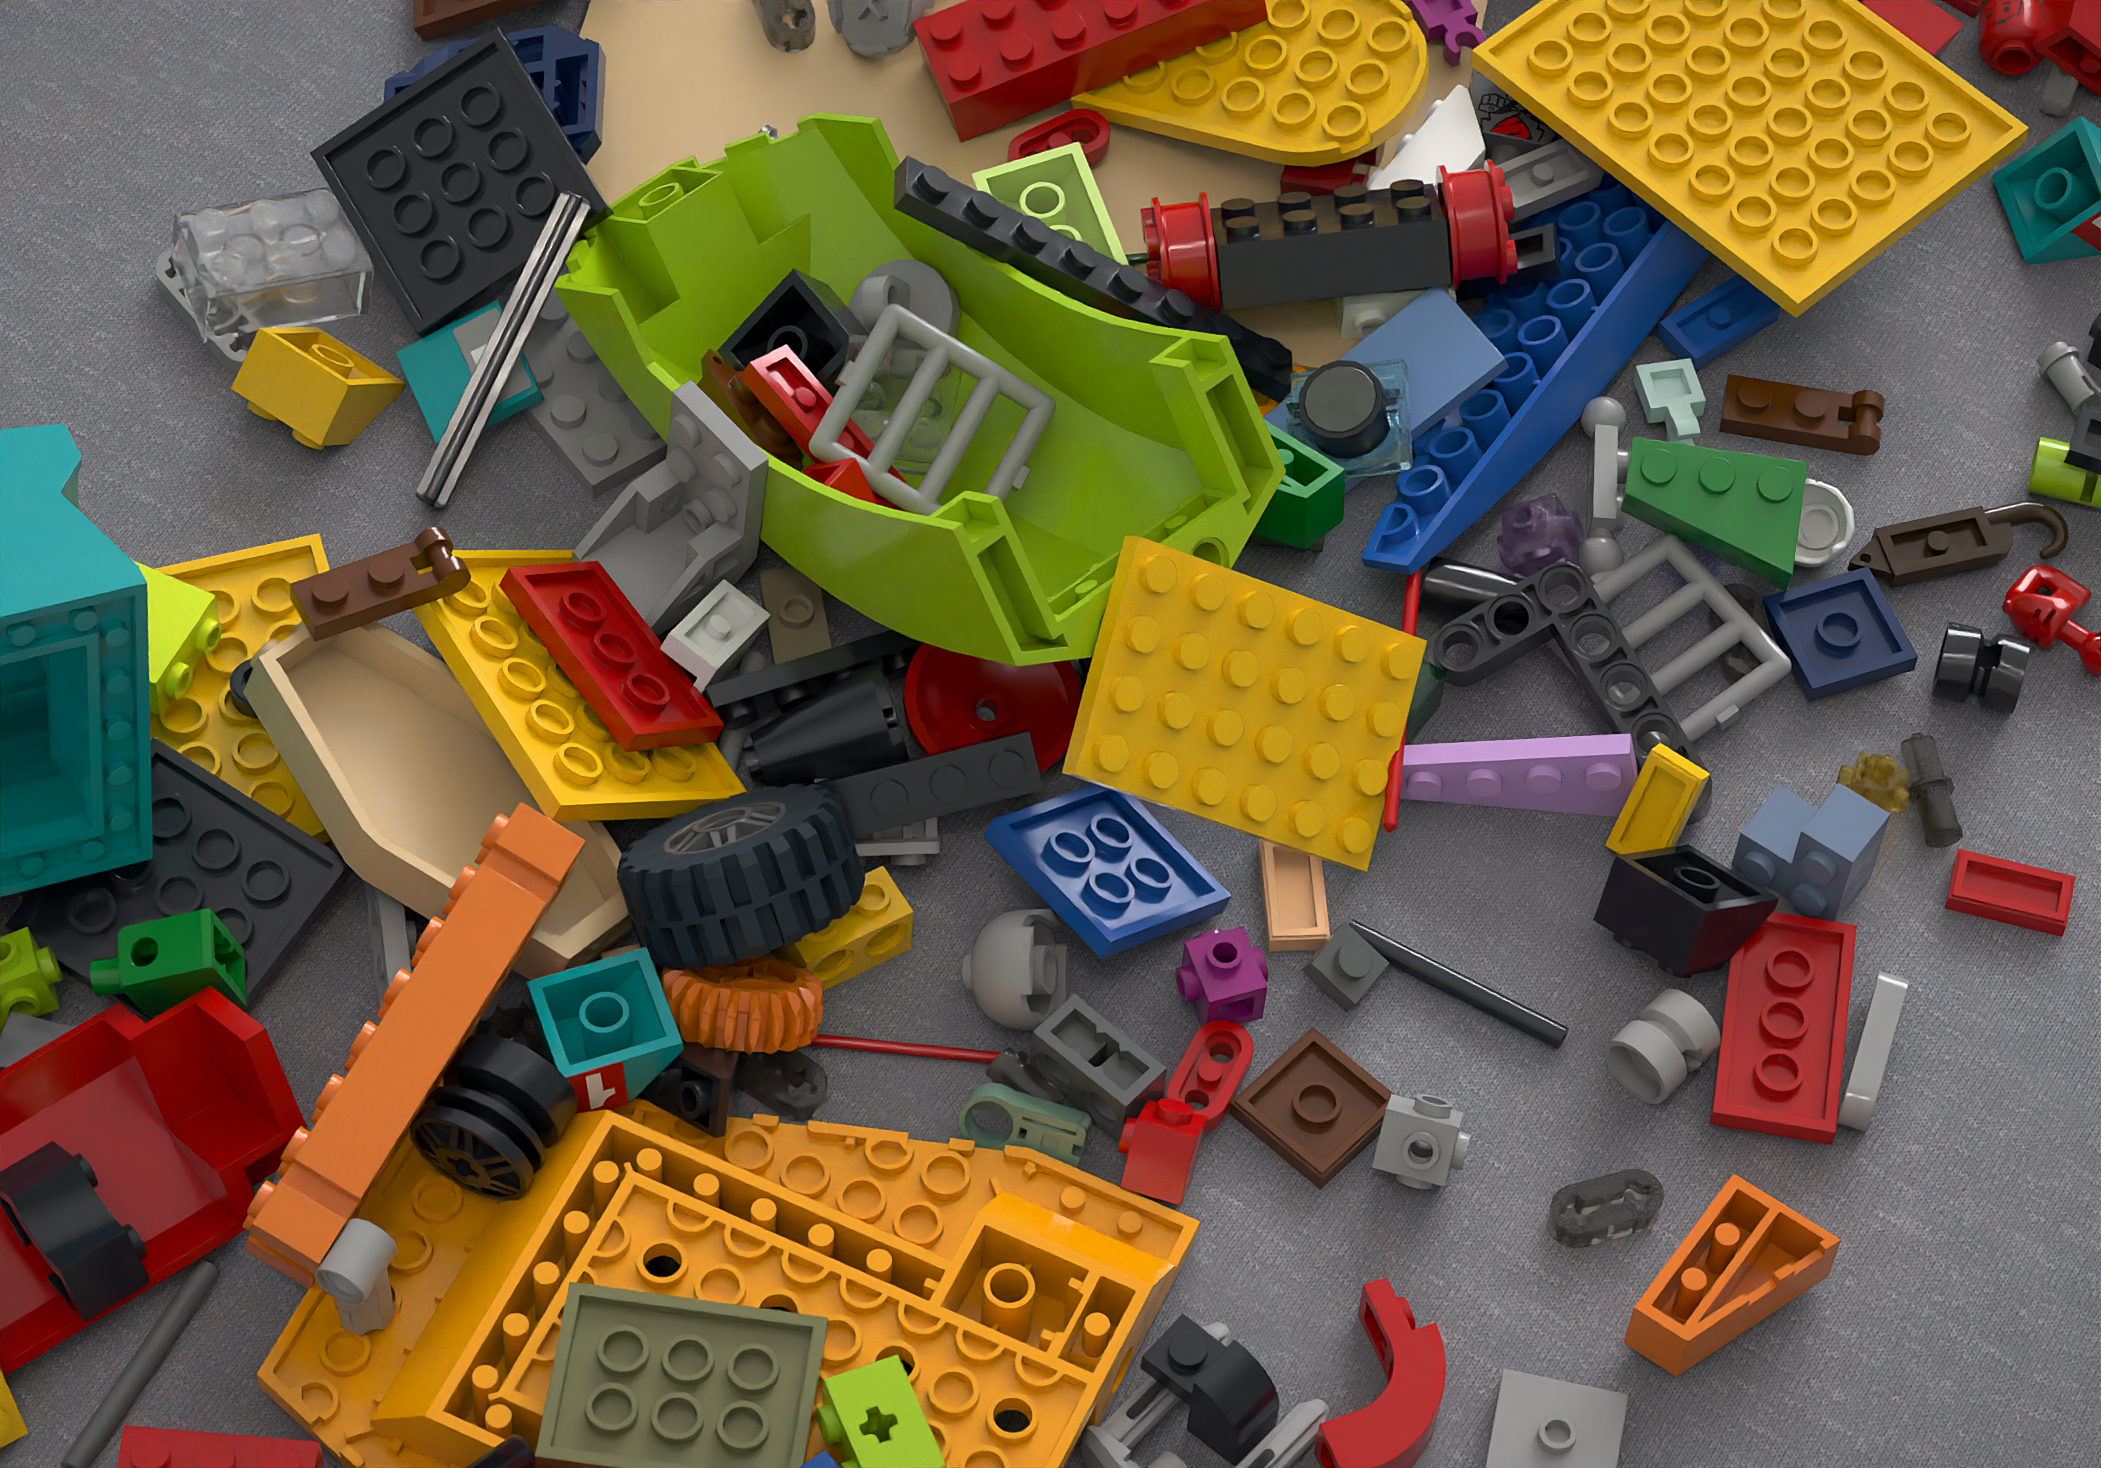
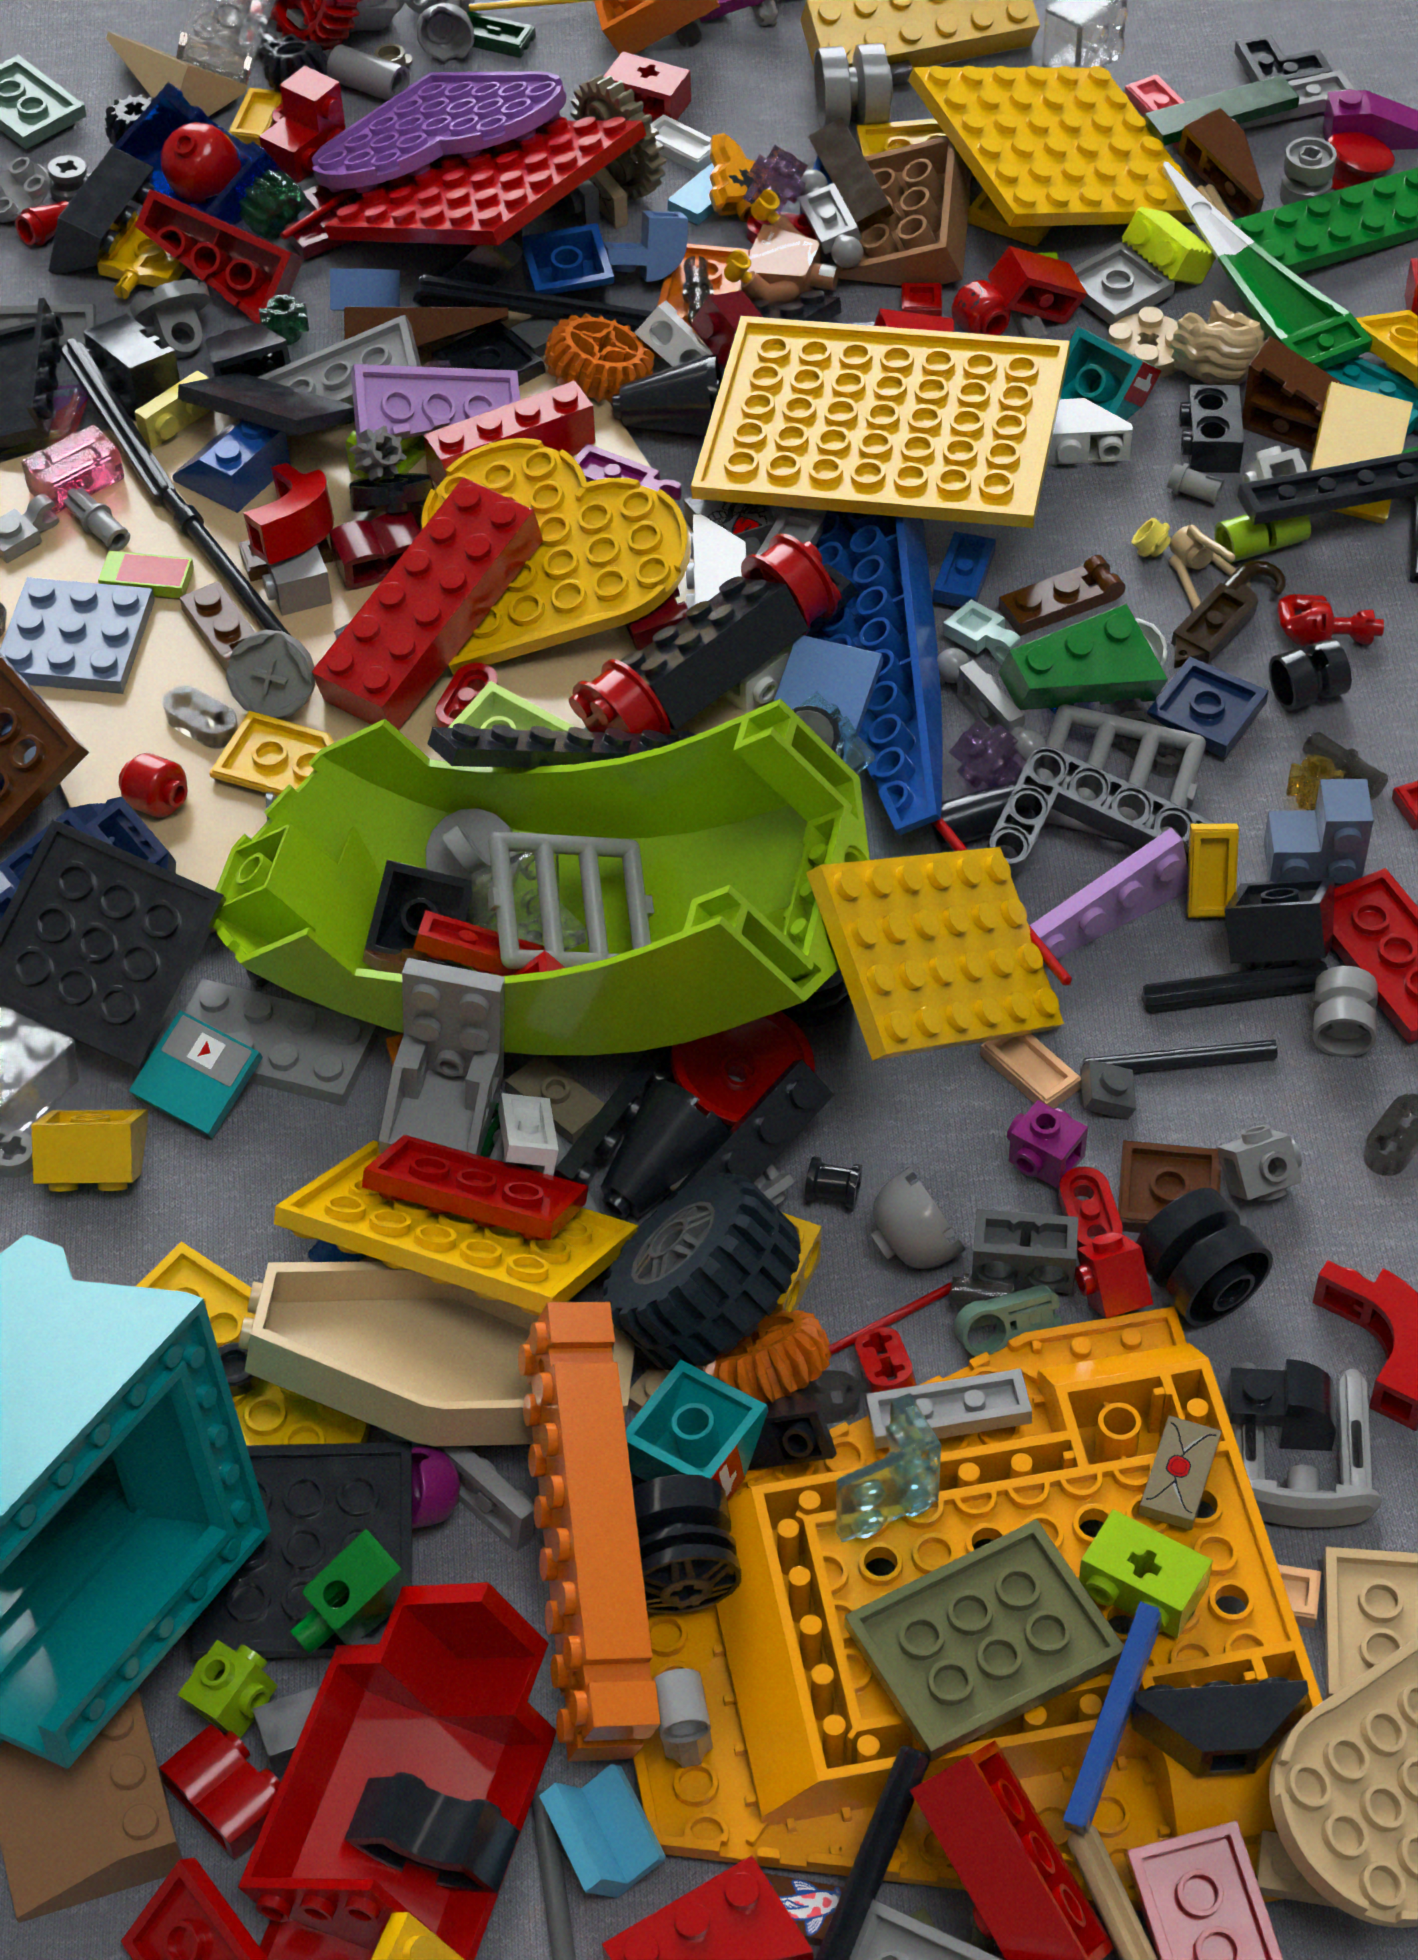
camera: 30 degrees left, 5 degrees down
(222, 1335) = (604, 1832): none -> medium azure panel
(342, 919) = (433, 1486): none -> magenta hair
(379, 585) = (291, 1233): reddish brown plate -> none
(503, 350) = (218, 1038): axle -> none
(670, 46) = (153, 785): none -> red head
(718, 1193) = (896, 1485): none -> clear light blue bracket
(815, 78) = (269, 754): none -> yellow tile
(865, 1090) = (892, 1363): none -> red beam
(875, 1167) = (958, 1405): none -> light grey plate
(982, 879) = (833, 1182): none -> black bush
(1014, 1371) = (1180, 1472): none -> dark tan tile
(1107, 868) = (912, 1121): blue plate -> none
(1263, 1190) = (1204, 1256): none -> black wheel
(1574, 944) = (1231, 986): none -> black axle
(1959, 410) = (1151, 538): none -> light yellow plate
(1985, 239) = (1088, 434): none -> white slope
(1993, 456) = (1196, 551): none -> tan plant

